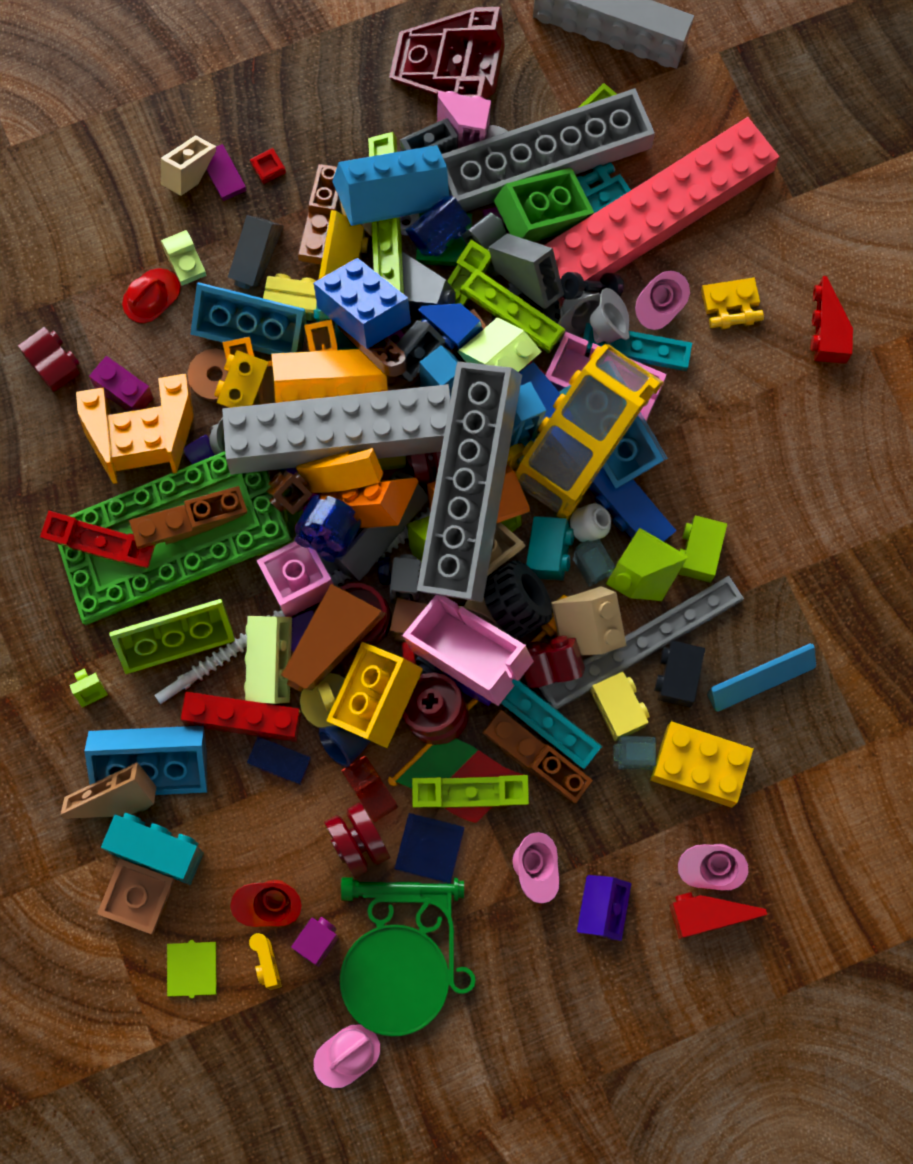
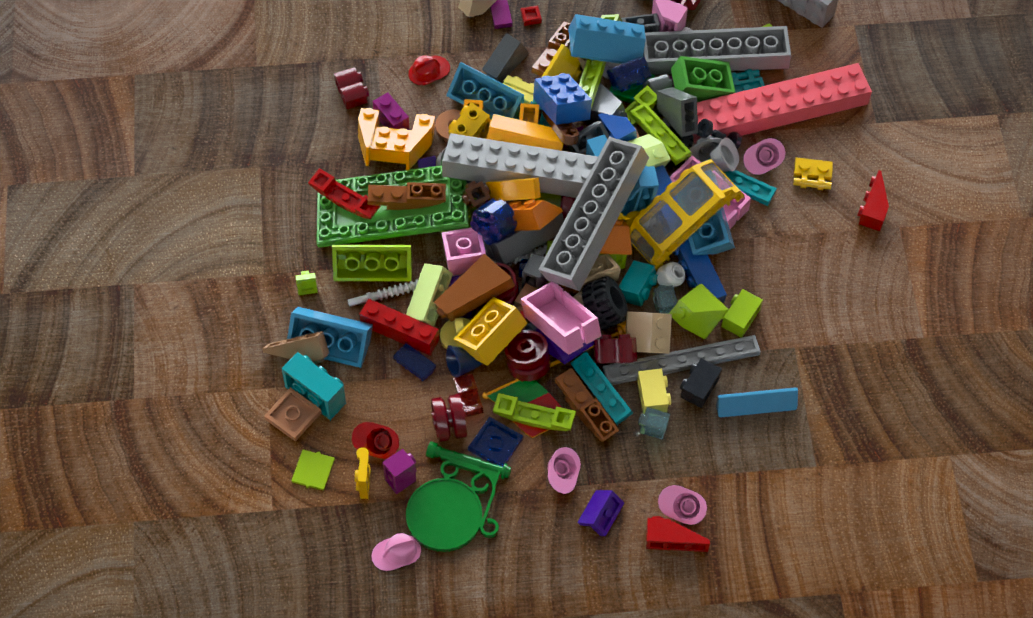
camera: 20 degrees right, 15 degrees down
(183, 257) = (457, 50): yellowish green brick -> none
(702, 764) = (696, 442): yellow brick -> none

